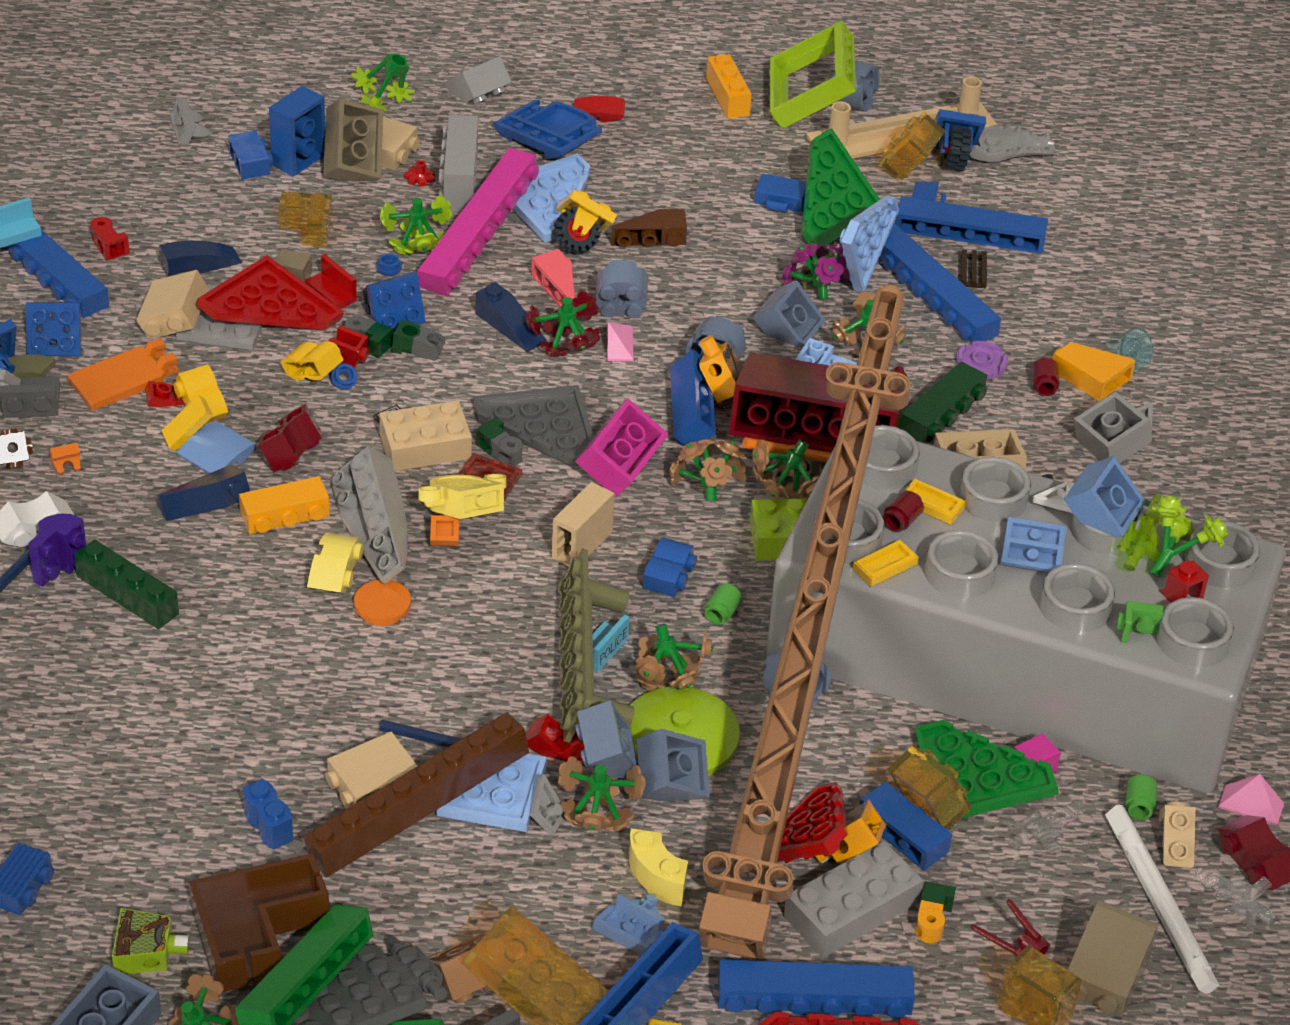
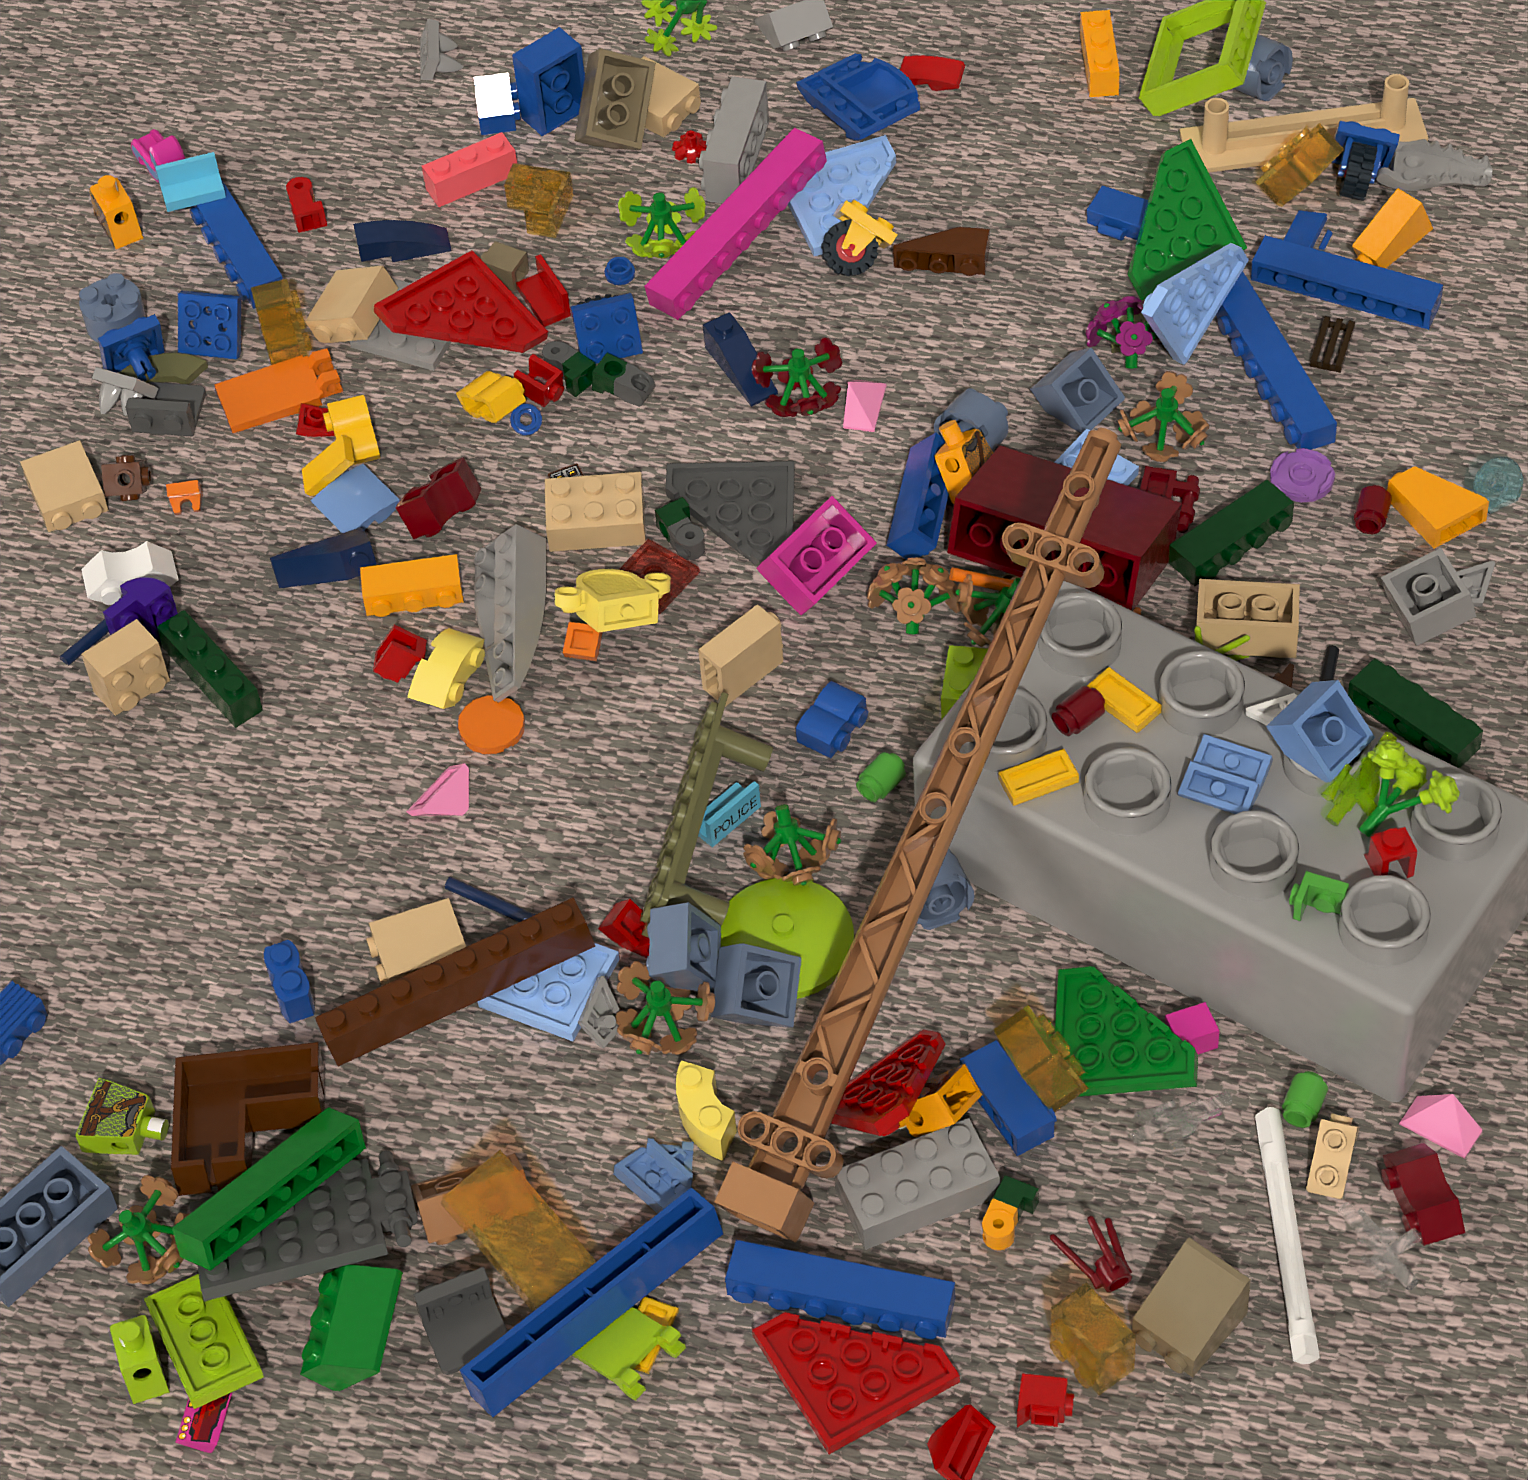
camera: 20 degrees right, 10 degrees up
(54, 589) = (126, 667): none -> tan brick
(113, 320) = (280, 321): none -> clear yellow brick
(243, 201) = (469, 169): none -> coral brick
(290, 555) = (398, 654): none -> red window
(359, 659) = (446, 795): none -> bright pink slope
(554, 275) = (810, 306): coral slope -> none
(621, 289) = (879, 336): sand blue brick -> none
(997, 184) = (1392, 230): none -> light orange slope

